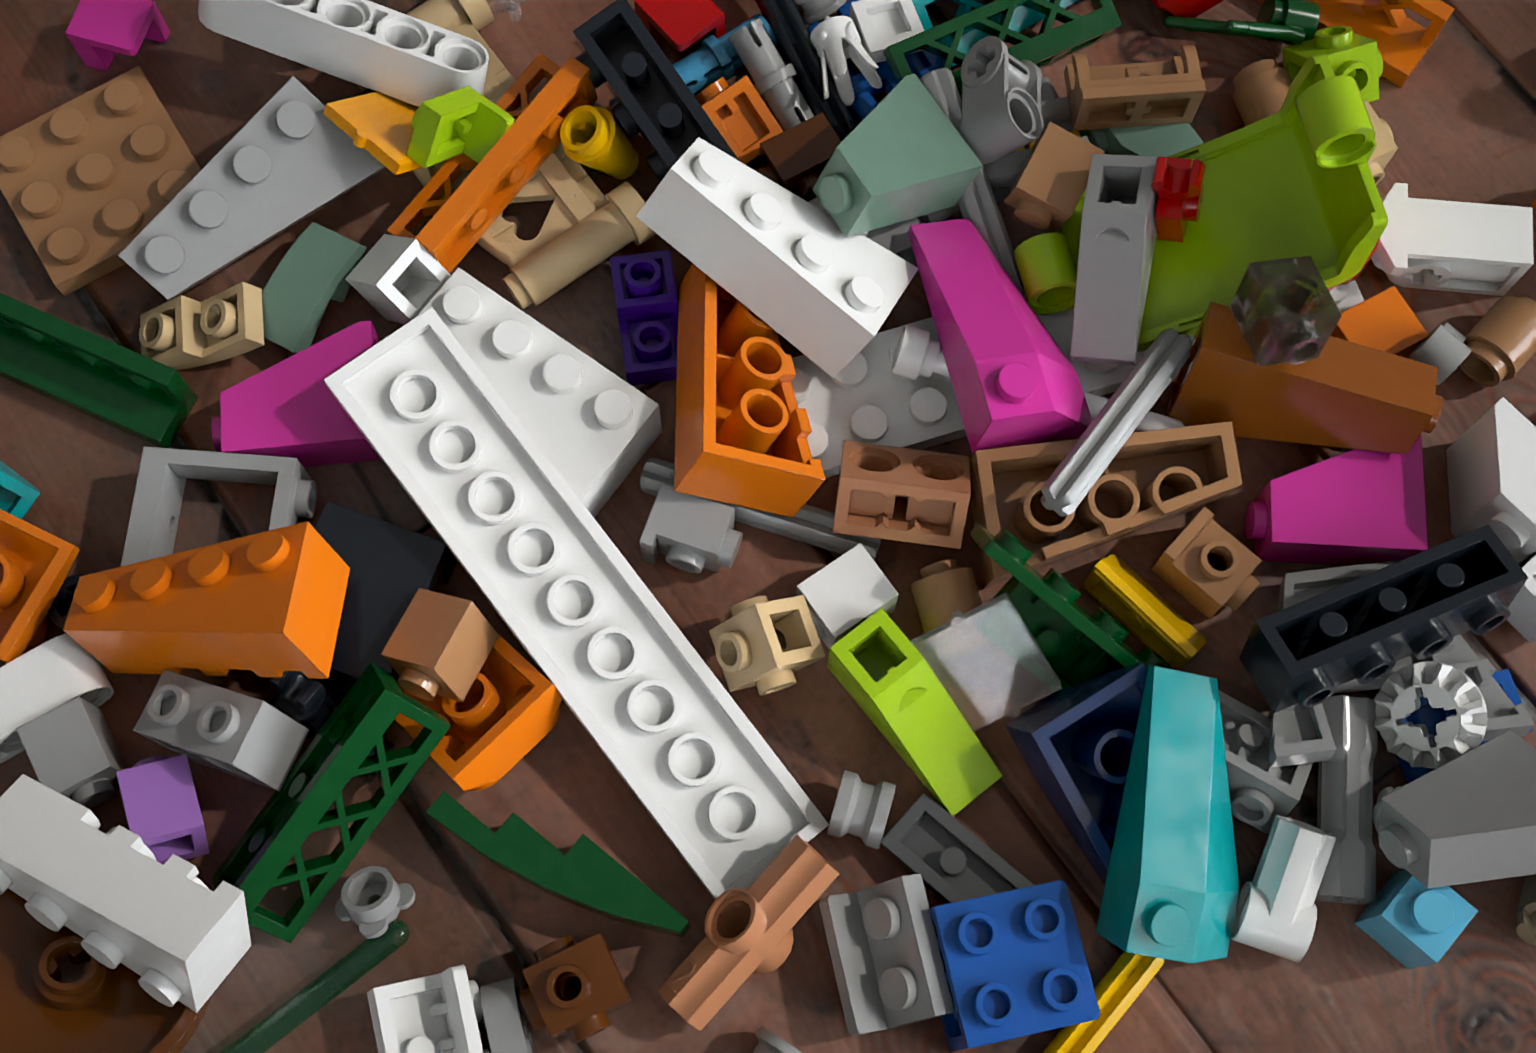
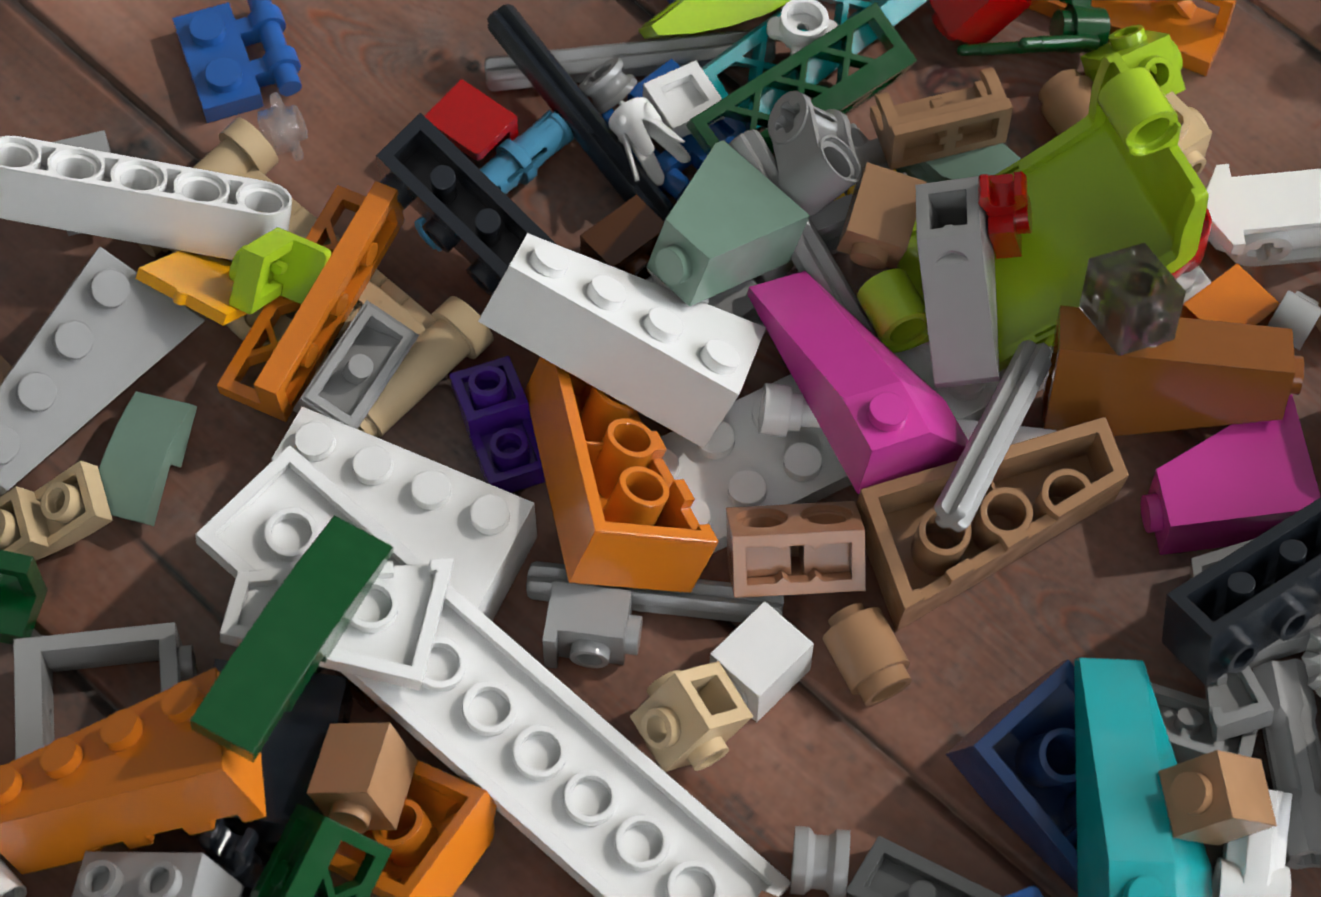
camera: 10 degrees left, 10 degrees down
(292, 410) = (162, 572): dark pink slope -> none
(382, 508) = (291, 638): none -> dark green slope
(398, 277) = (239, 430): white brick -> none
(449, 492) = (387, 635): none -> white wing
(521, 237) = (358, 367): none -> light grey slope
(598, 142) = (414, 261): yellow cone -> none
(739, 116) = (554, 210): orange bracket -> none
(771, 75) = (575, 168): light grey pin -> none
(913, 711) = (849, 755): lime slope -> none
(988, 662) = (914, 696): clear piece -> none
(1070, 638) = (963, 646): dark green bracket -> none
(1143, 611) = (1056, 620): yellow slope -> none
(1188, 572) = (1113, 565): medium nougat brick -> none
(1261, 834) = (1217, 798): none -> medium nougat brick

